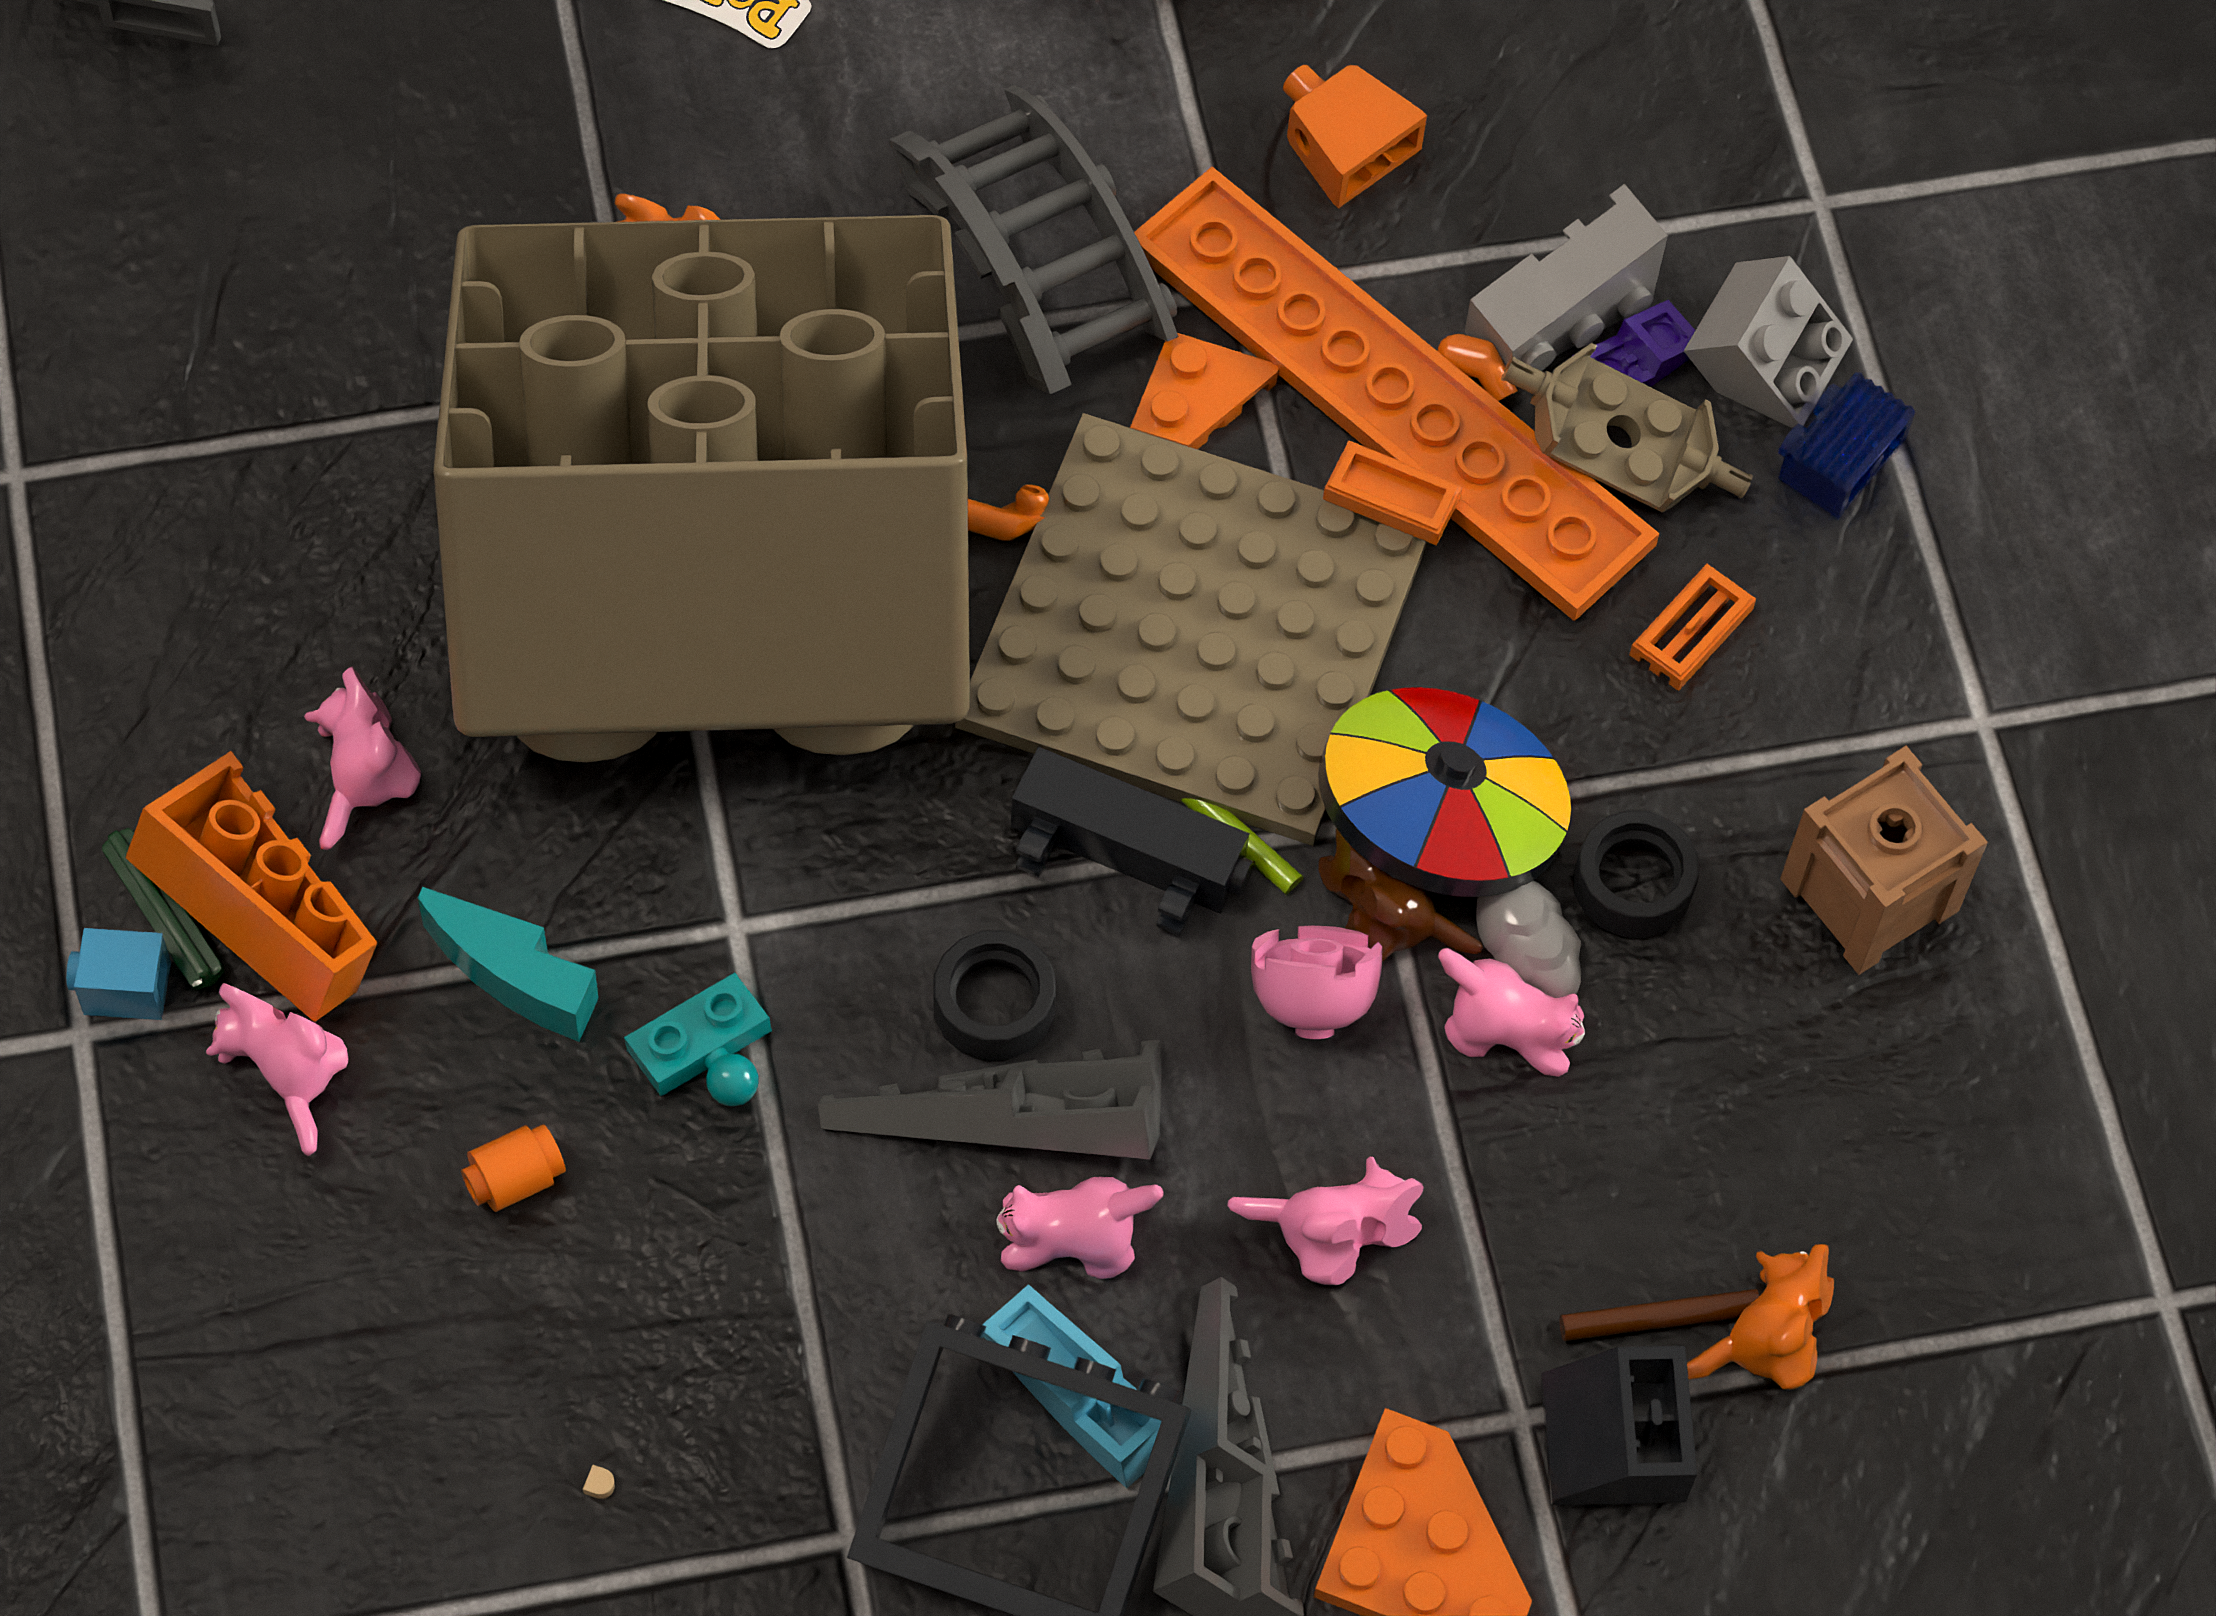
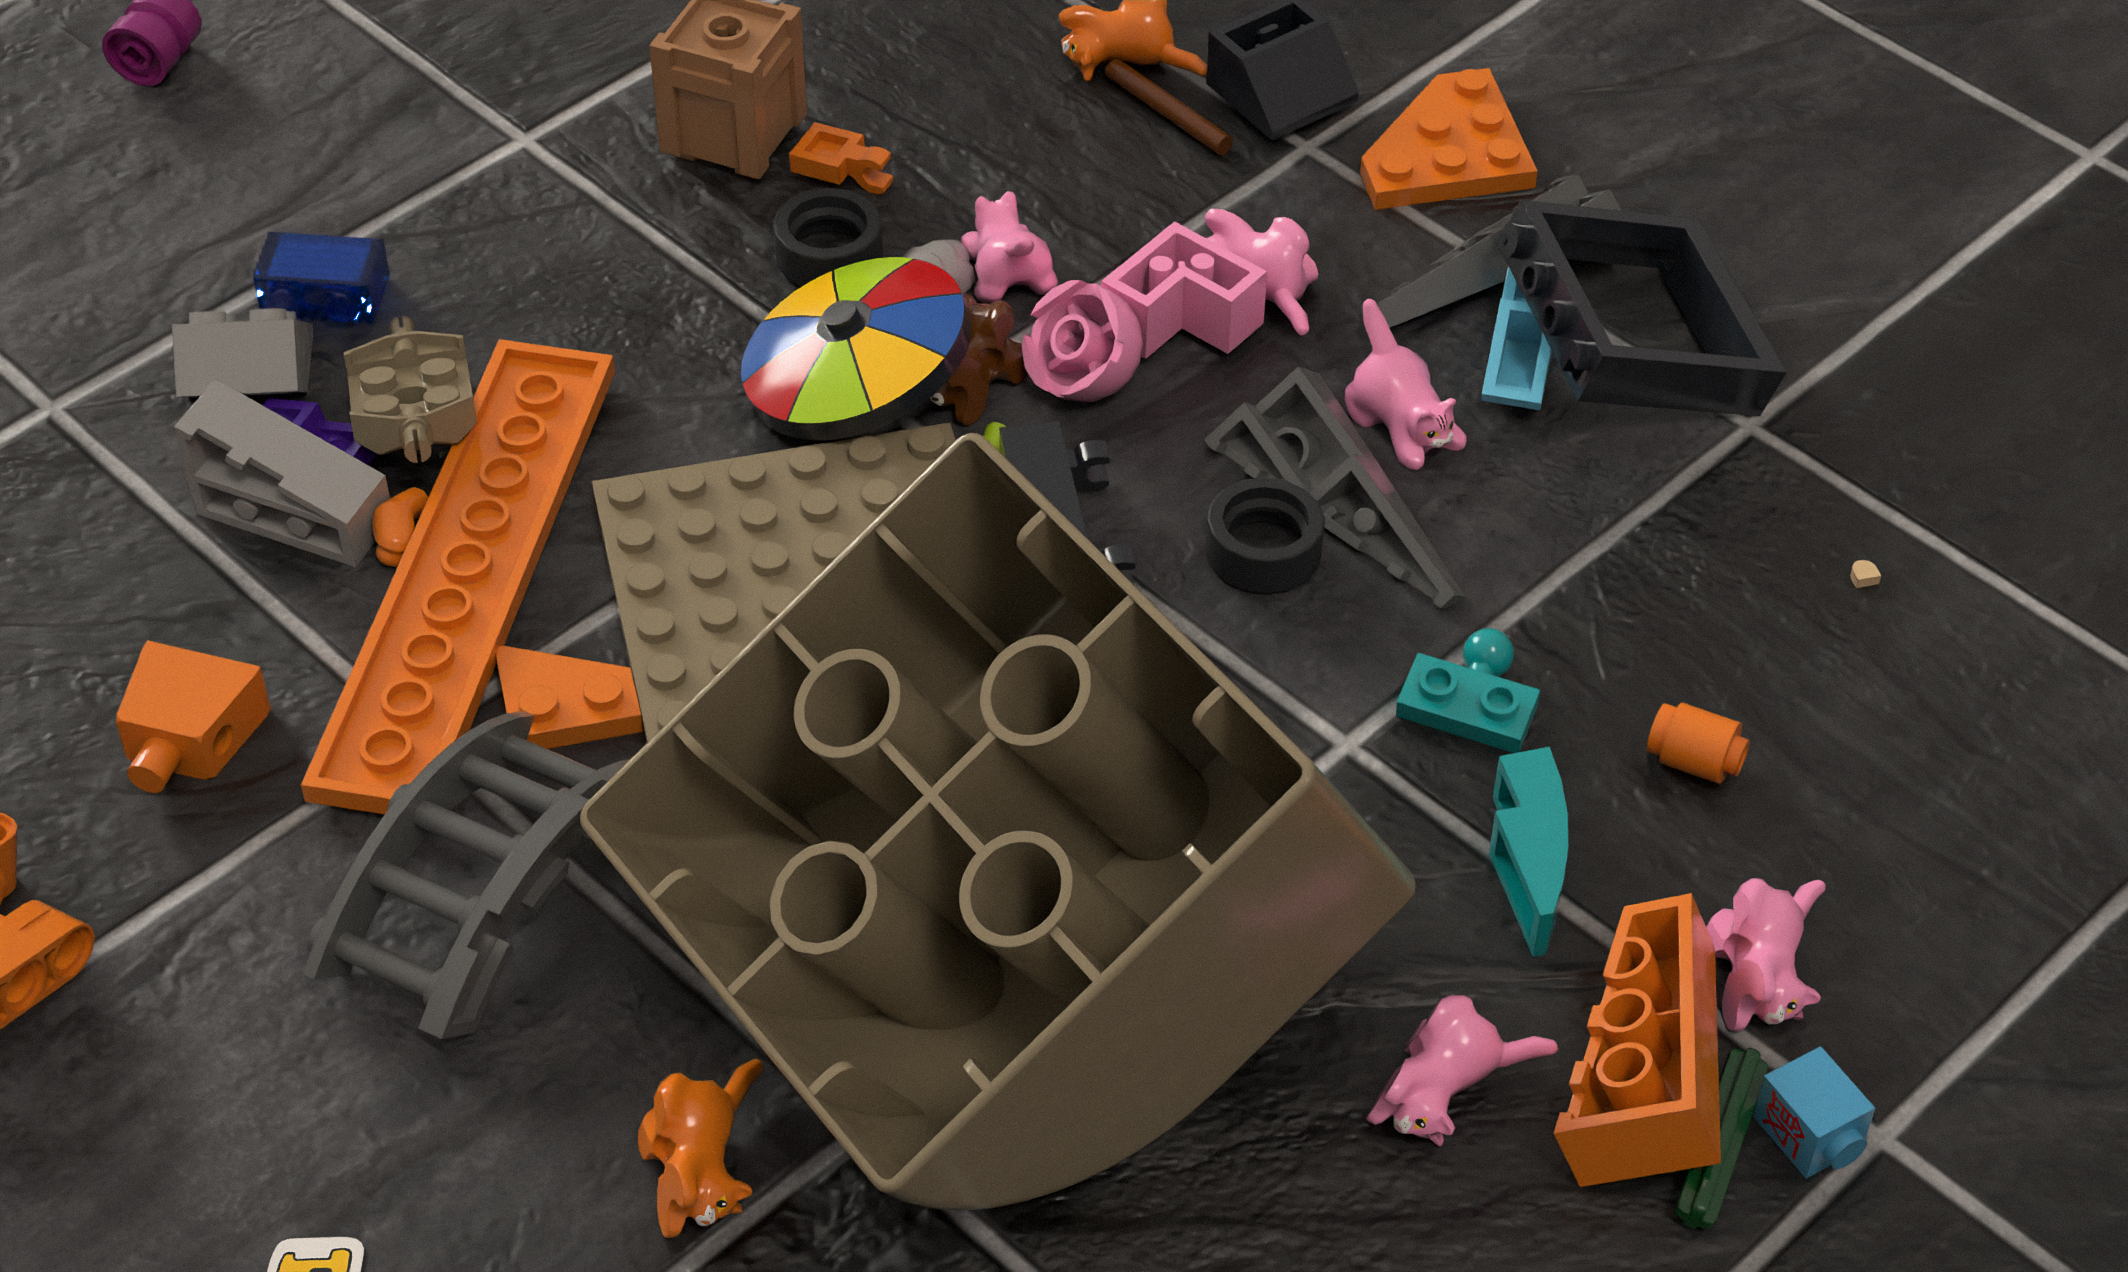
camera: 120 degrees left, 15 degrees down
(1342, 1114) = (1190, 286): none -> bright pink brick
(1392, 492) = (588, 498): orange tile -> none
(1664, 660) = (564, 308): orange tile -> none
(1761, 946) = (835, 153): none -> orange plate

